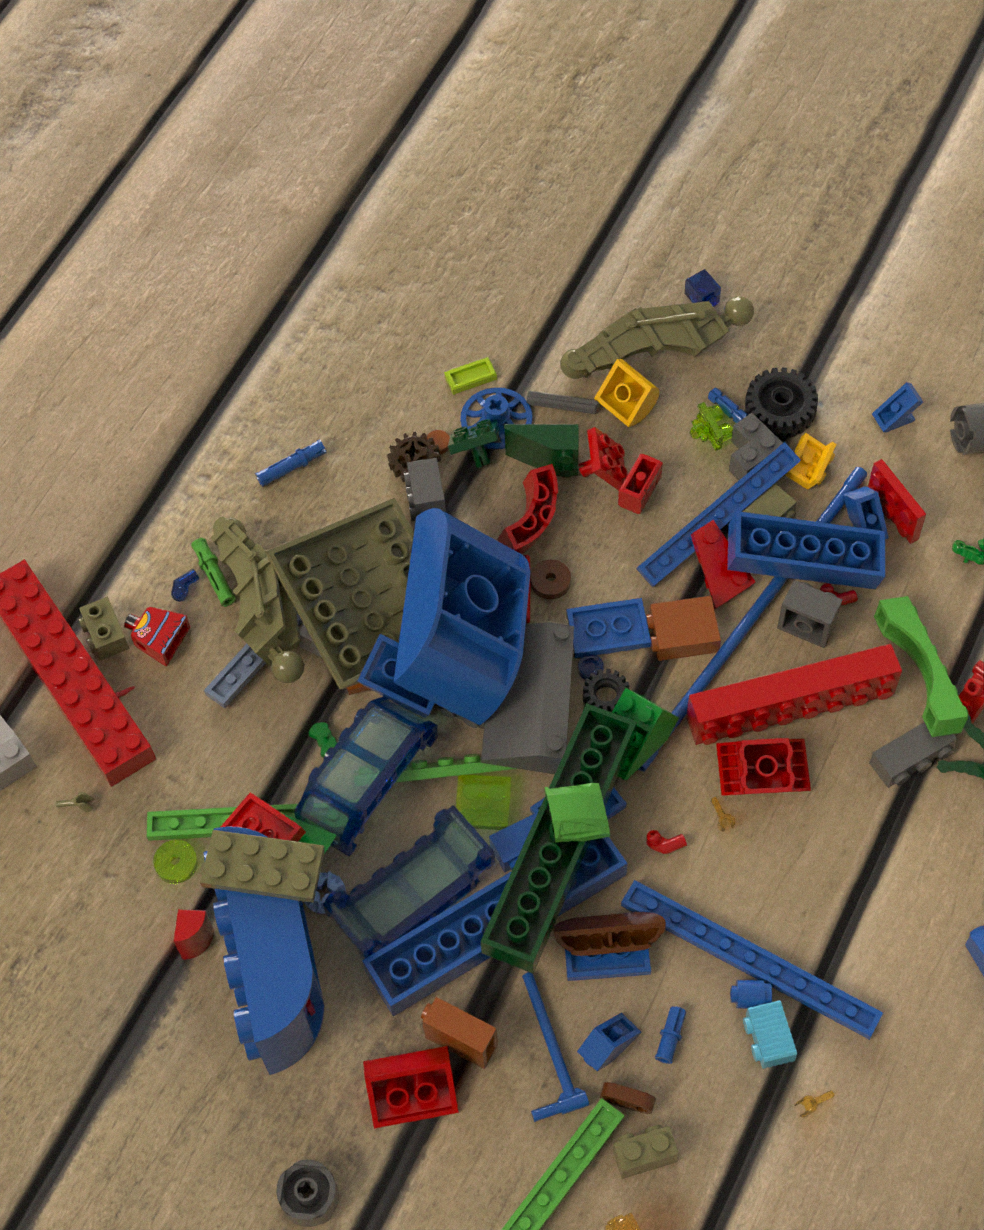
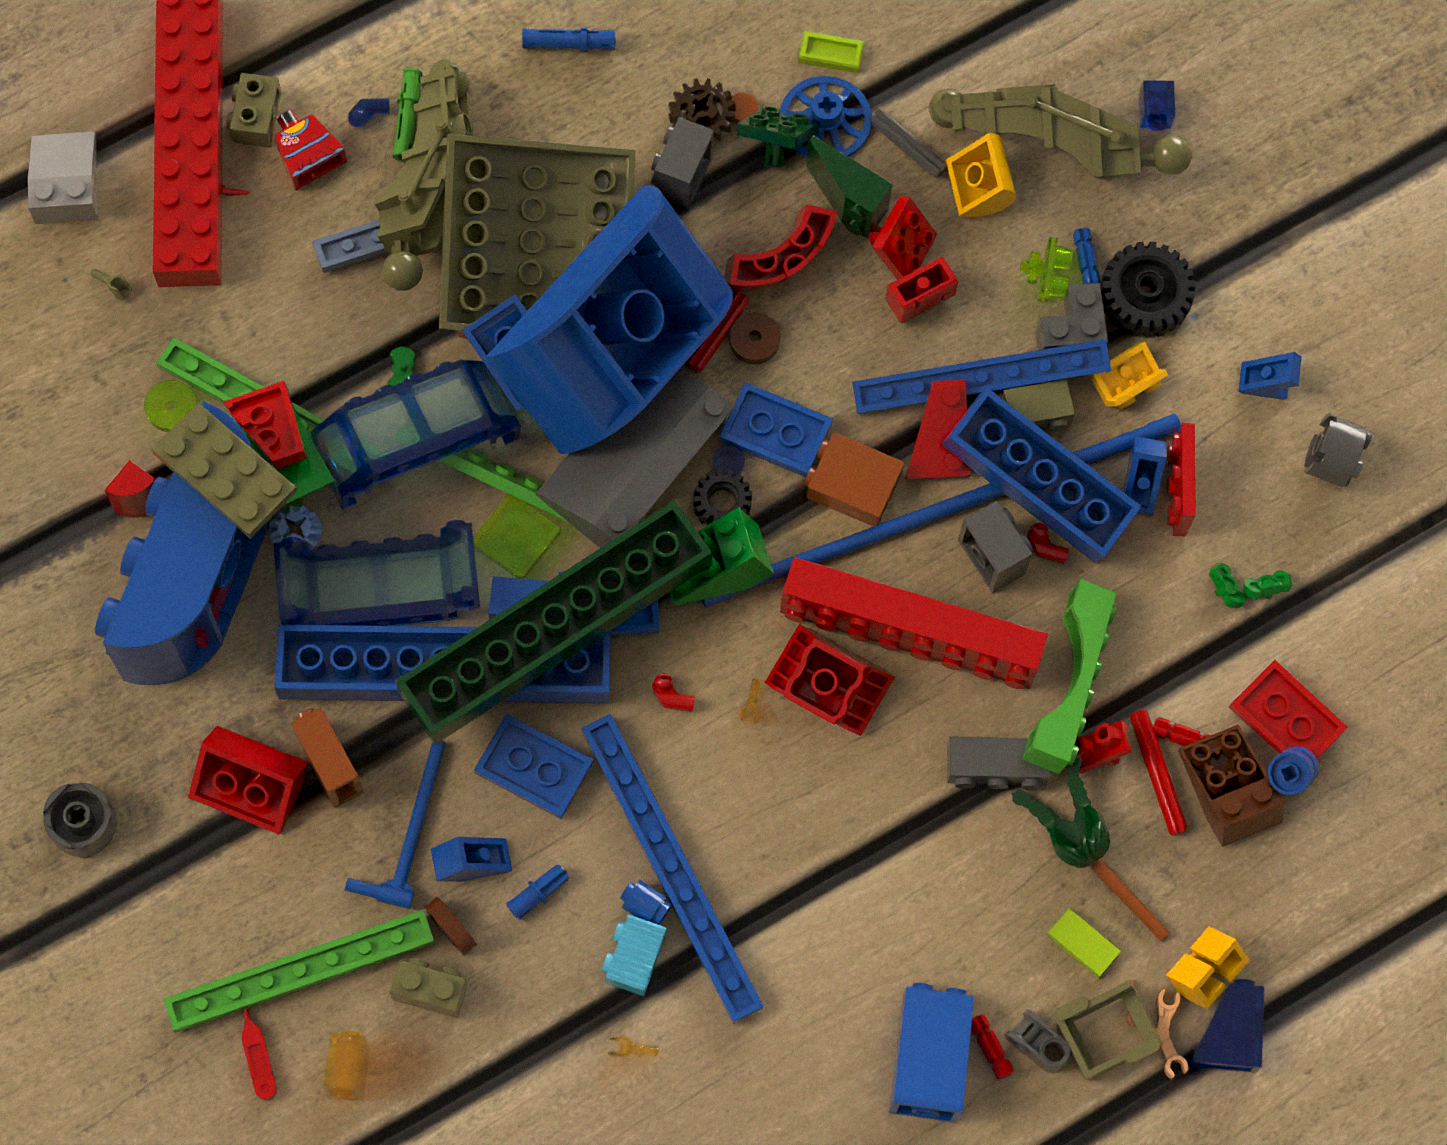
camera: 25 degrees right, 10 degrees up
(577, 812) = (579, 609): bright green slope -> none
(609, 933) = (542, 751): reddish brown brick -> none

